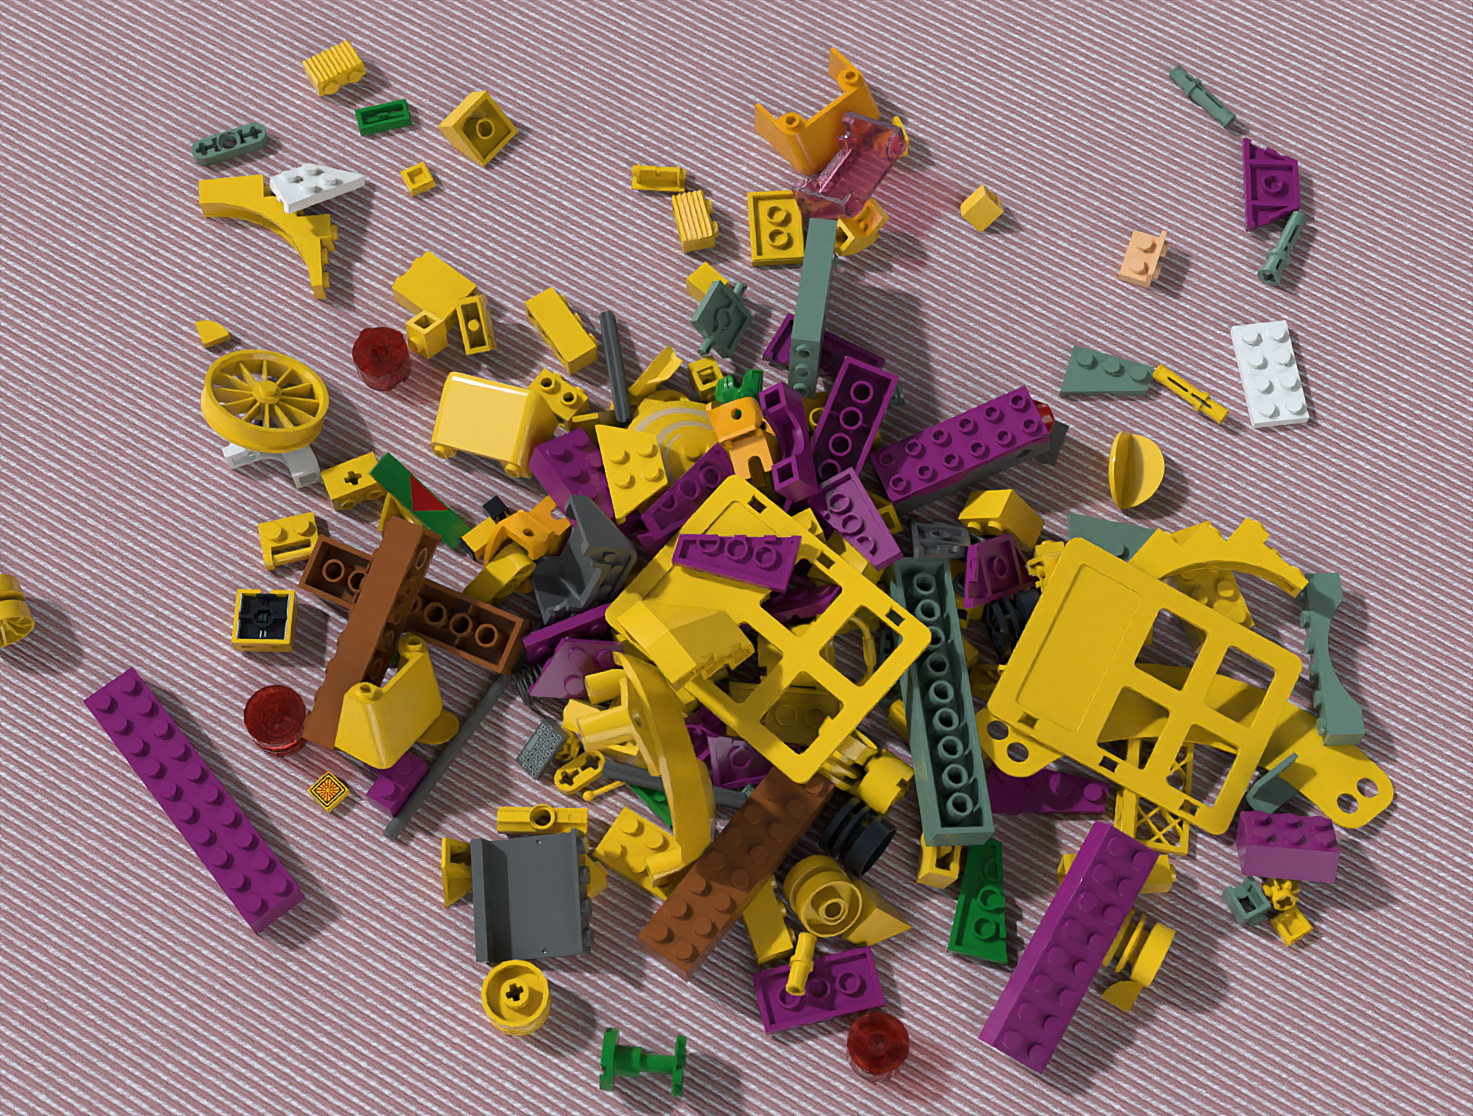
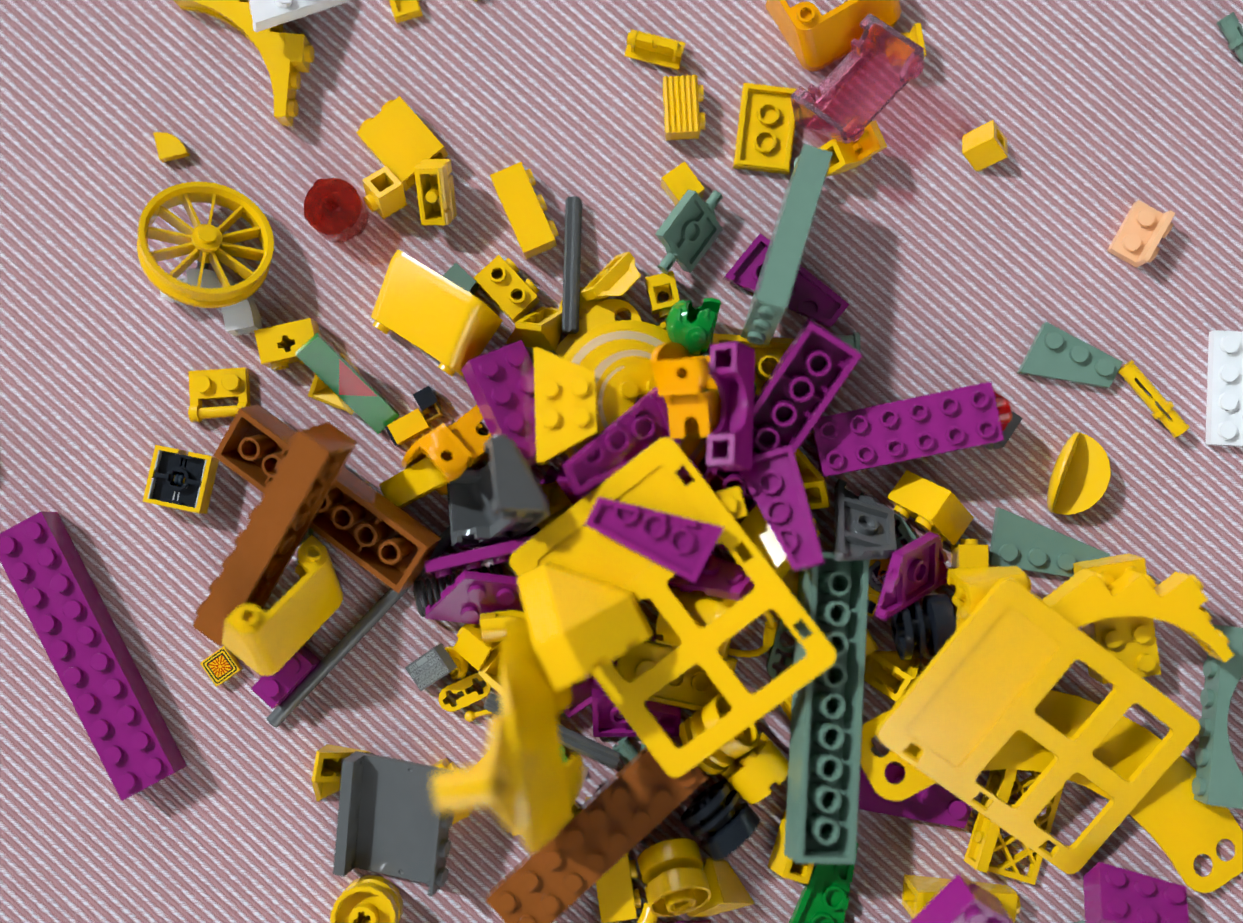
camera: 15 degrees right, 20 degrees up
(272, 706) = (161, 592): clear red wheel -> none
(441, 729) = (338, 626): yellow piece -> none
(523, 819) = (401, 735): yellow piece -> none
(1271, 791) = (1134, 839): sand green panel -> none

